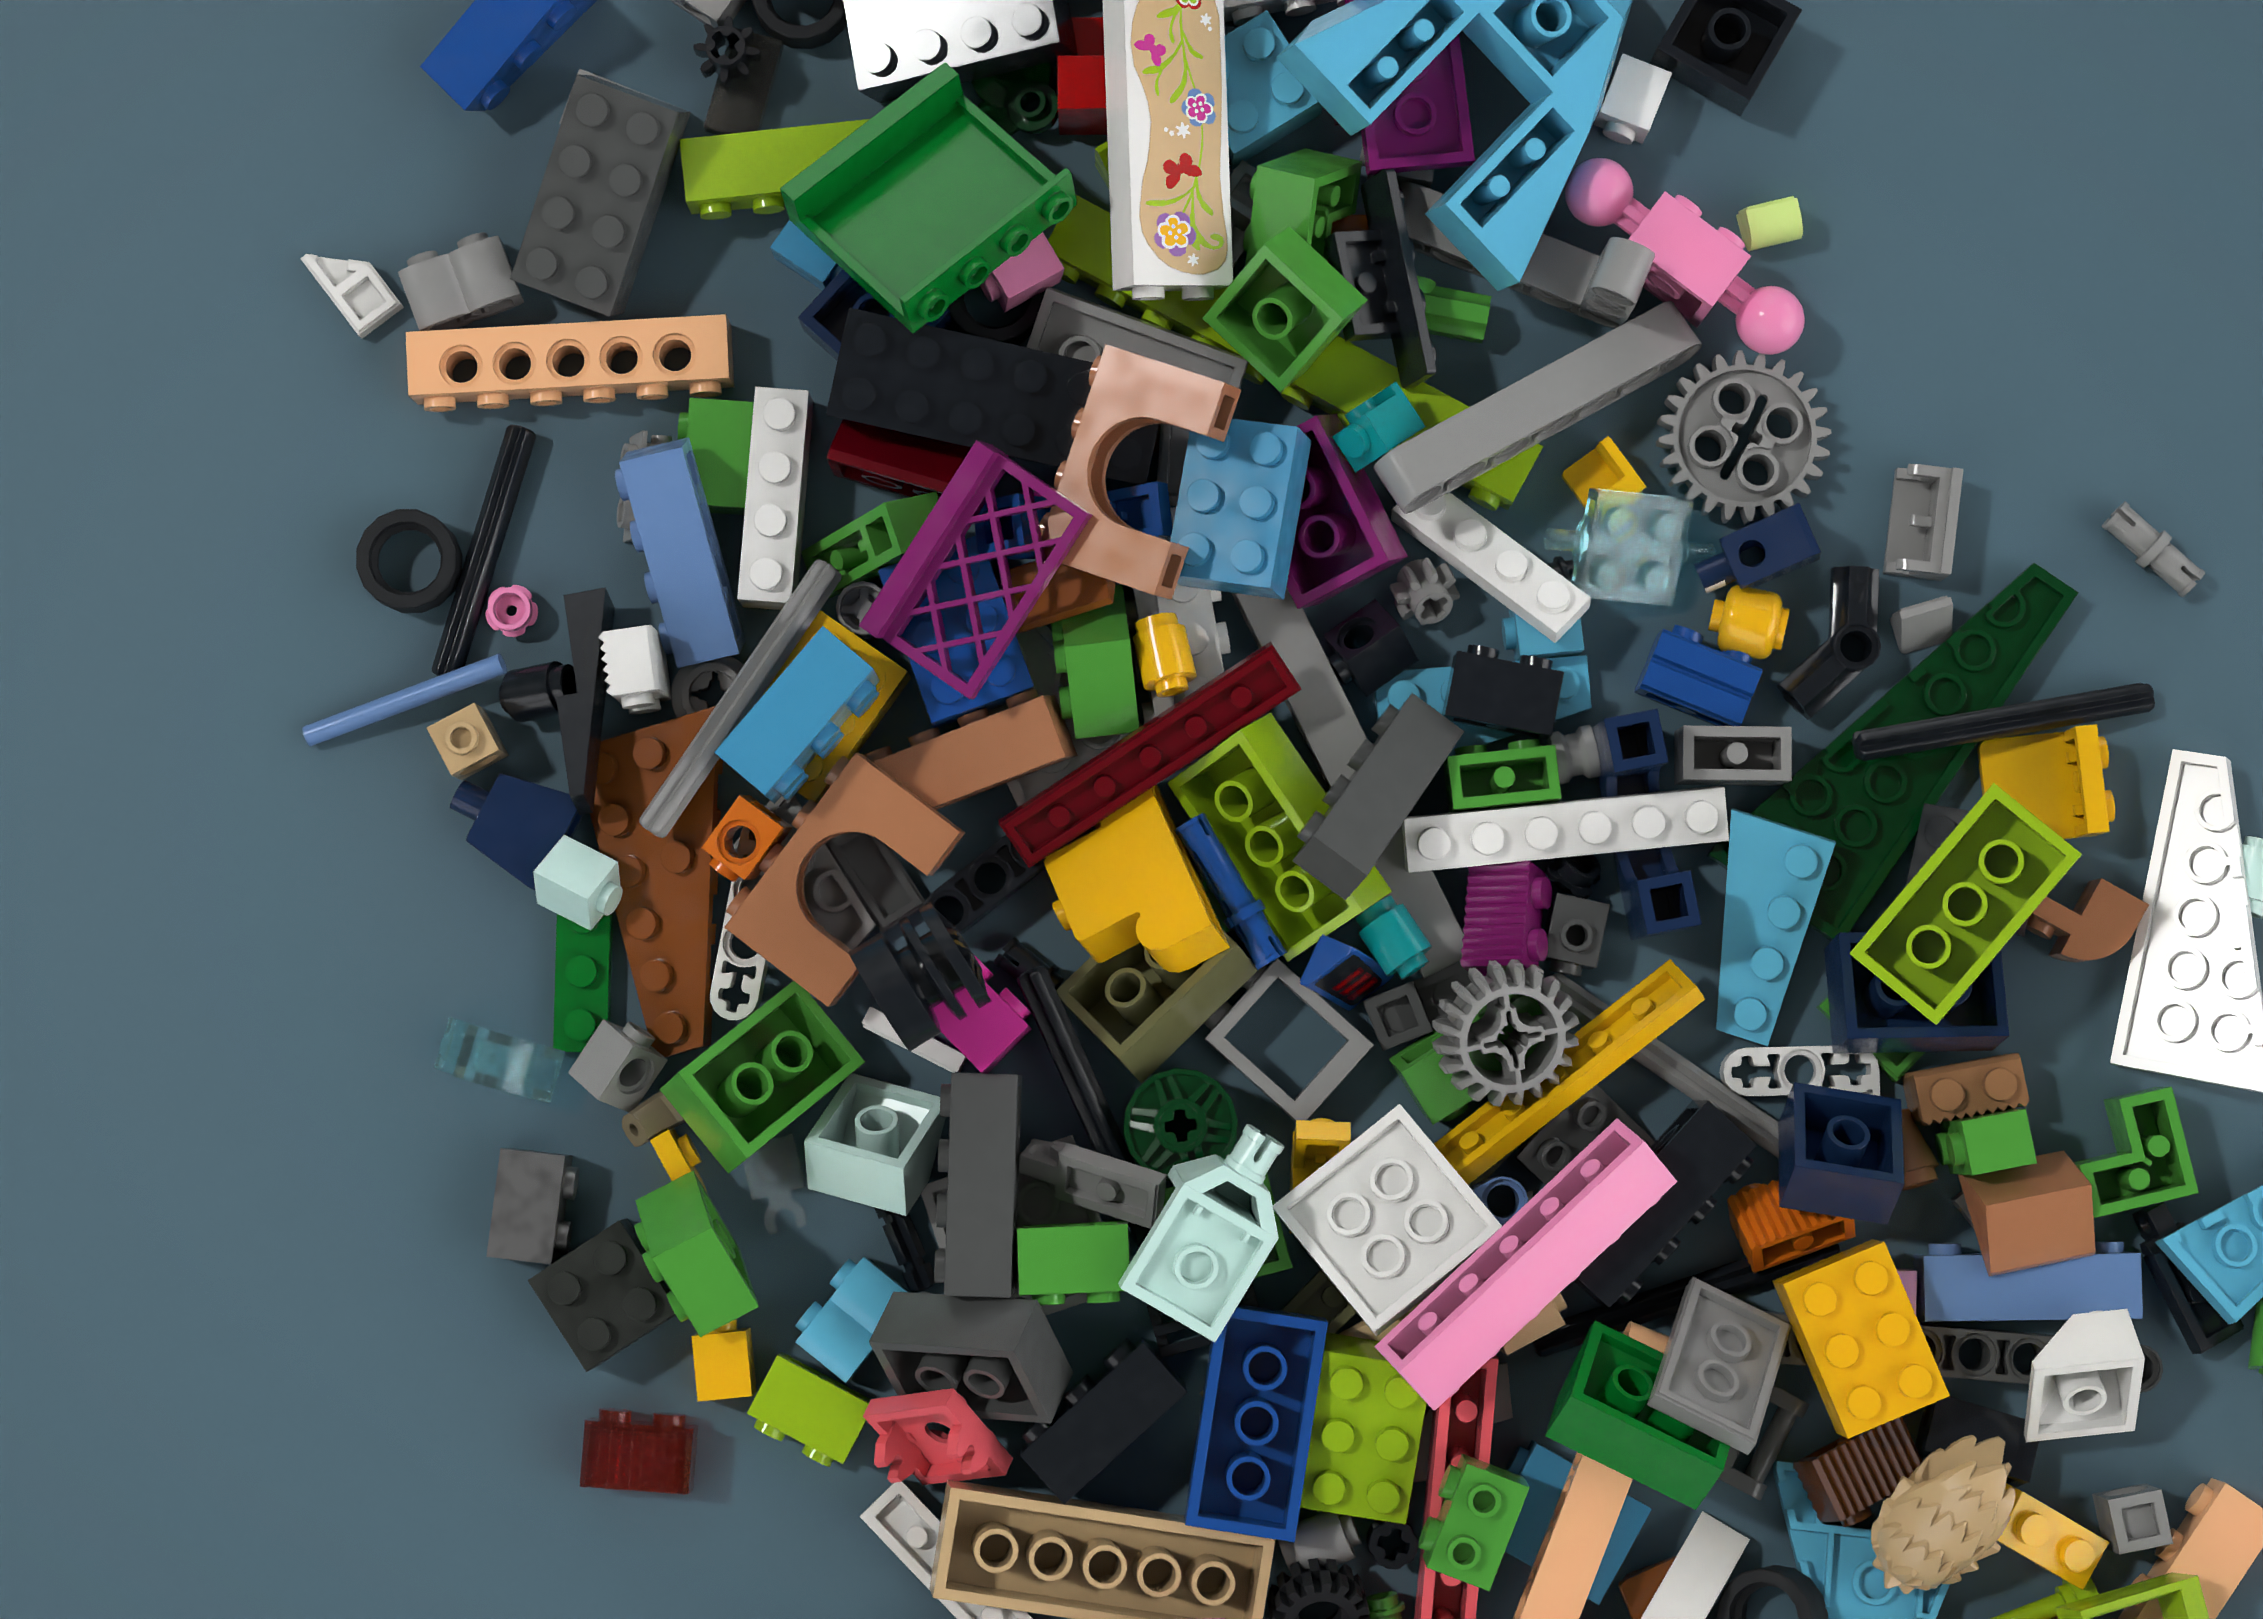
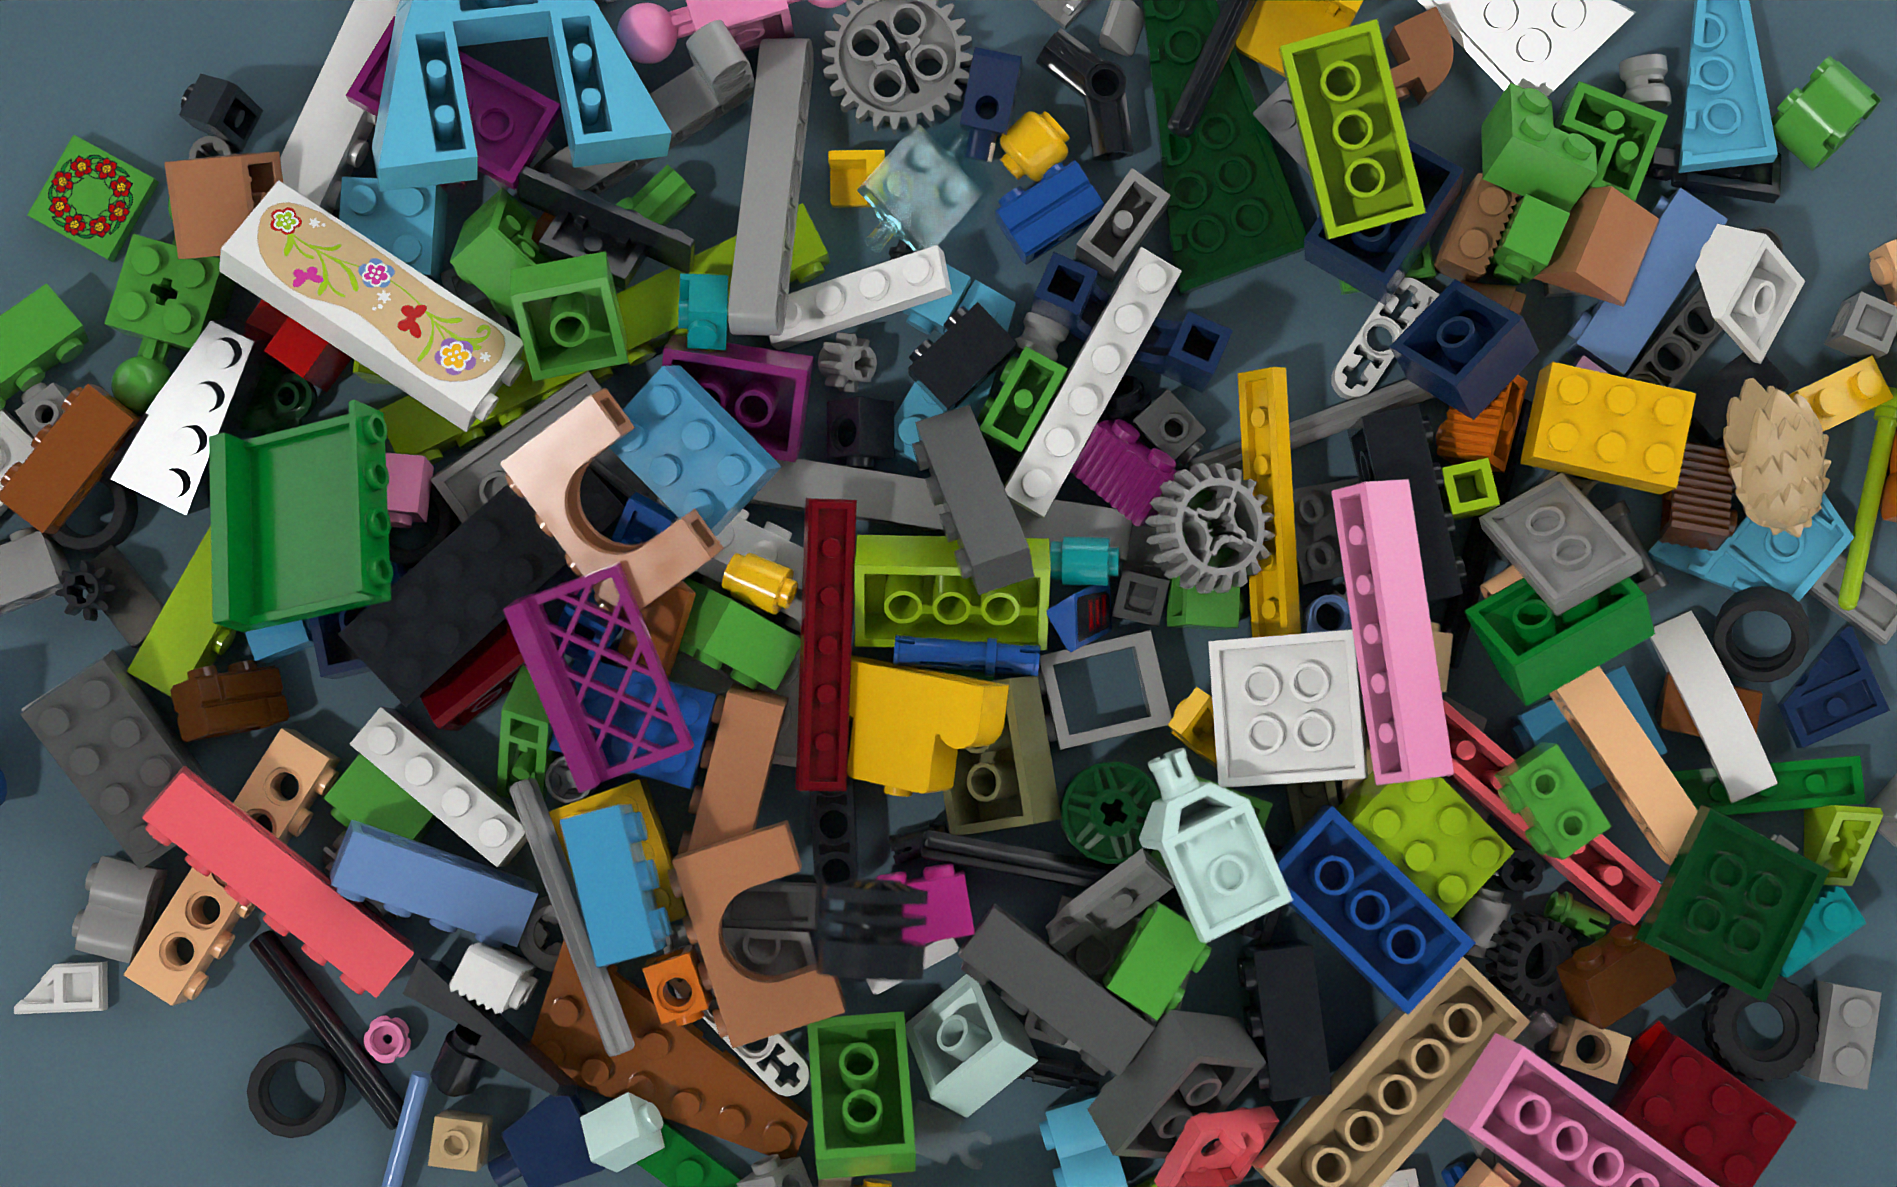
camera: 50 degrees left, 0 degrees up
(586, 412) = (278, 882): none -> coral brick
(717, 251) = (230, 701): none -> reddish brown brick
(1711, 1248) = (1469, 489): none -> lime brick
(1767, 910) = (1248, 276): medium azure wing -> none
(2069, 1090) = (1531, 155): none -> bright green brick
(2221, 1152) = (1645, 80): none -> light grey wheel

